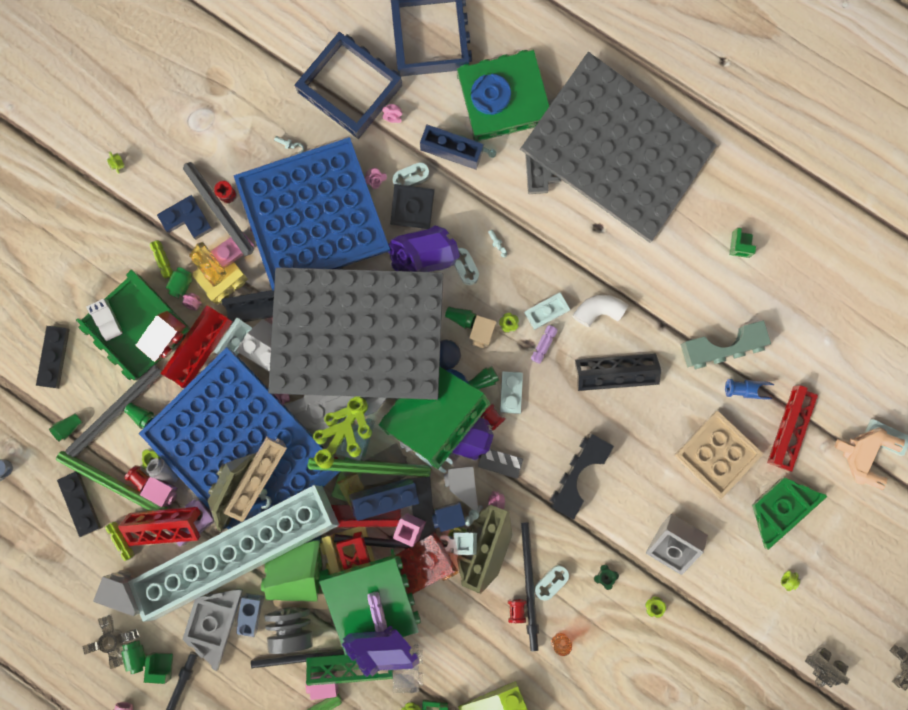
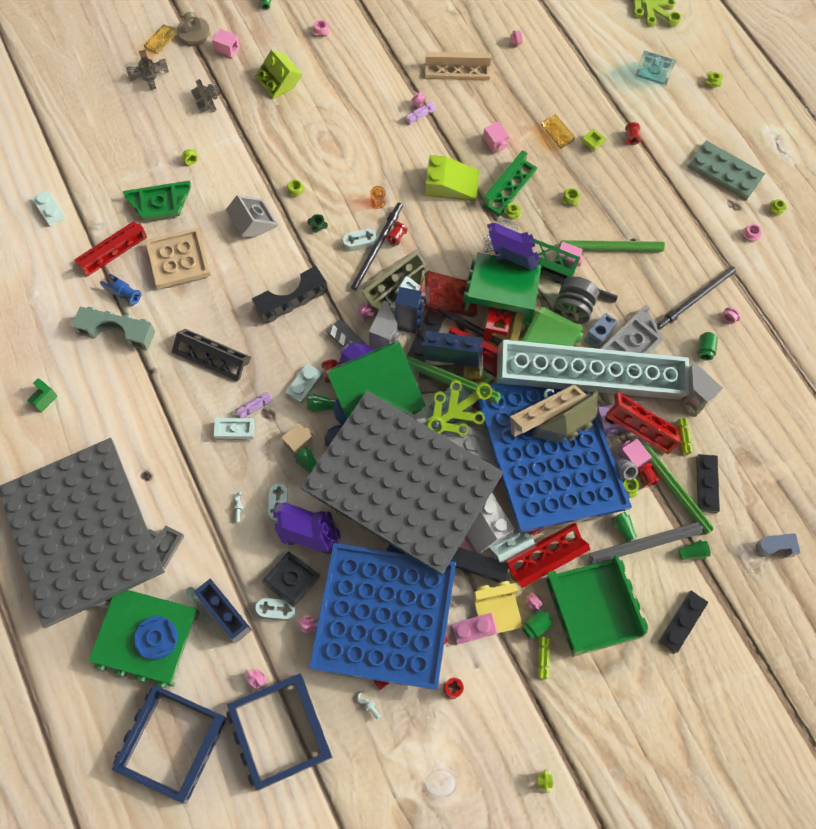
camera: 155 degrees left, 15 degrees down
(102, 644) = (722, 358): clear smoke pin -> none
(105, 319) = (620, 621): white leg -> none
(158, 668) = (690, 329): green panel -> none
(160, 336) = (575, 576): brick -> none
(188, 213) = (498, 691): dark blue plate -> none
(207, 264) = (502, 623): clear yellow plate -> none
(218, 209) = (468, 676): dark grey axle -> none
(377, 611) = (501, 272): lavender axle -> none
(409, 529) = (445, 318): bright pink brick -> none
(509, 327) = (270, 441): lime plate -> none
(598, 306) = (190, 409): white cylinder -> none
(862, 451) = (72, 204): light nougat connector -> none

